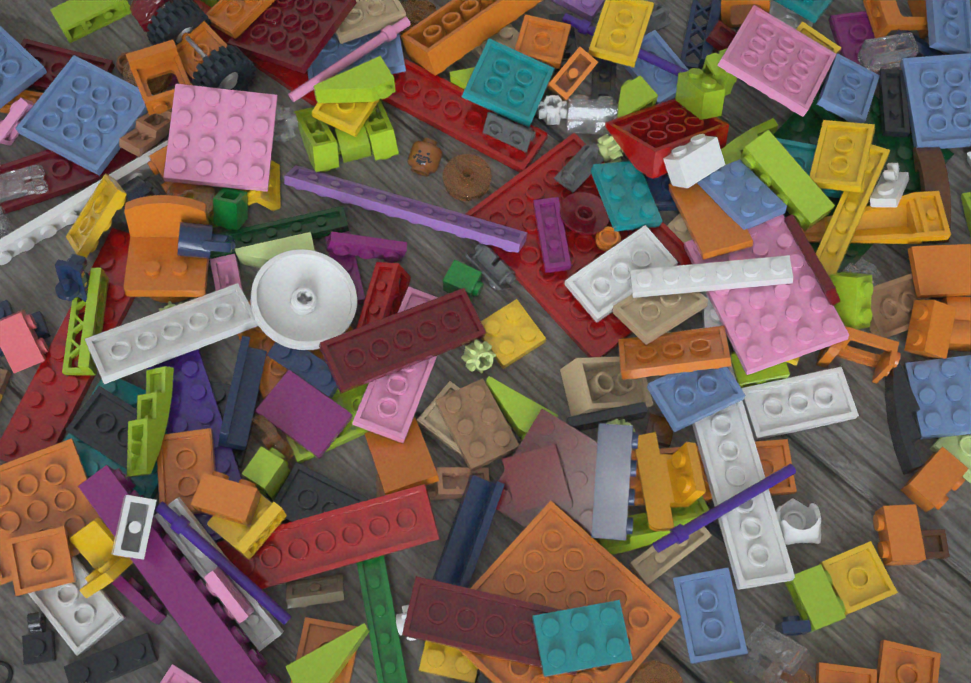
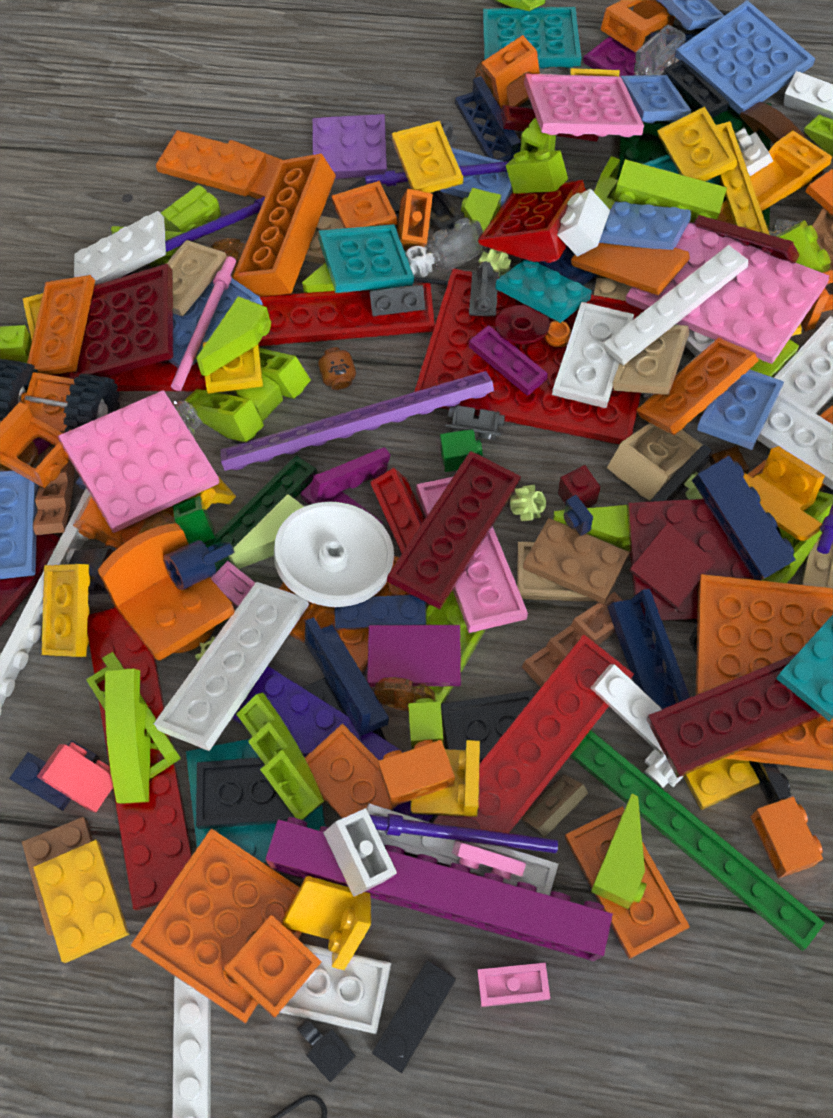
camera: 30 degrees left, 5 degrees down
(66, 330) = (125, 736): none -> lime slope
(72, 278) = (90, 675): dark blue hips -> none
(148, 606) = (409, 934): magenta plate -> none
(402, 464) = (540, 639): orange tile -> none
(418, 551) = (627, 701): none -> white plate
(467, 187) = (387, 374): clear orange plate -> none
(496, 392) = (577, 515): none -> dark blue plate
(511, 333) = (539, 465): yellow plate -> none
(524, 372) = (579, 483): none -> dark red brick

